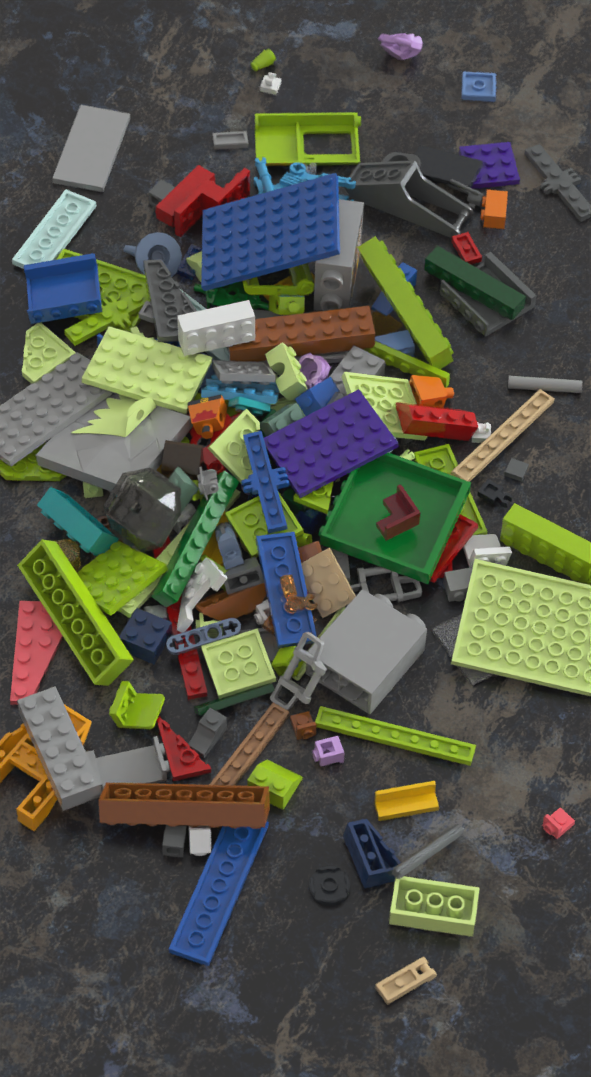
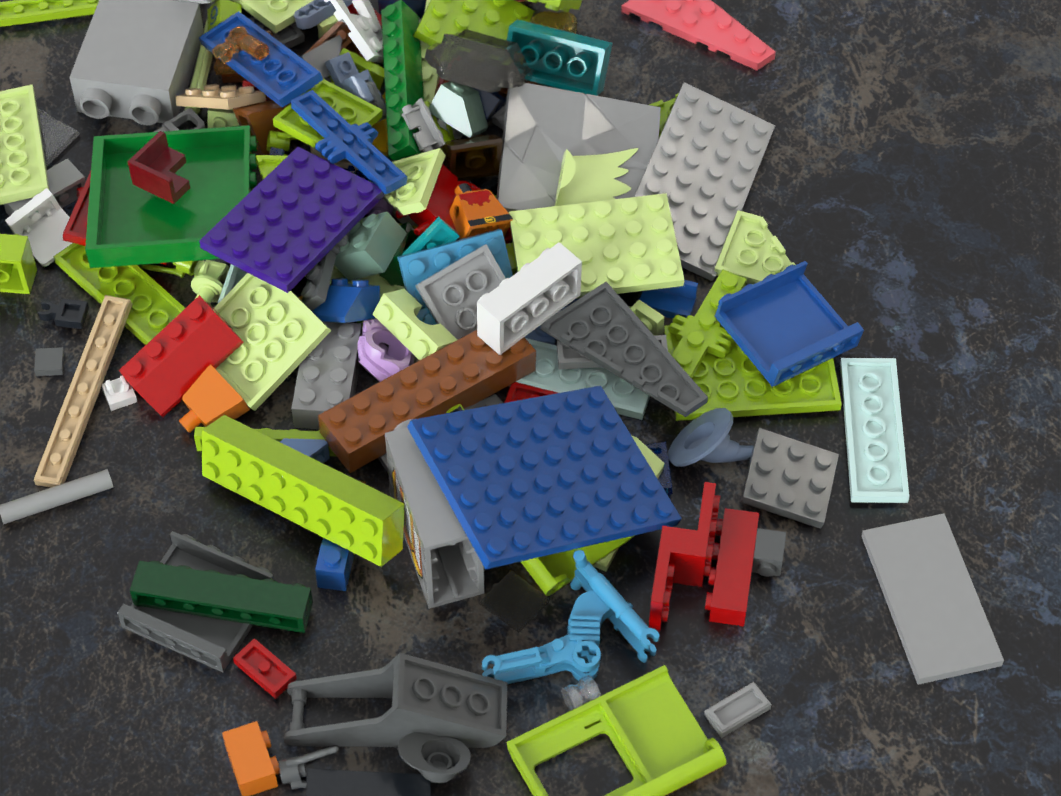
camera: 155 degrees right, 0 degrees up
(122, 225) = (789, 478): none -> plate

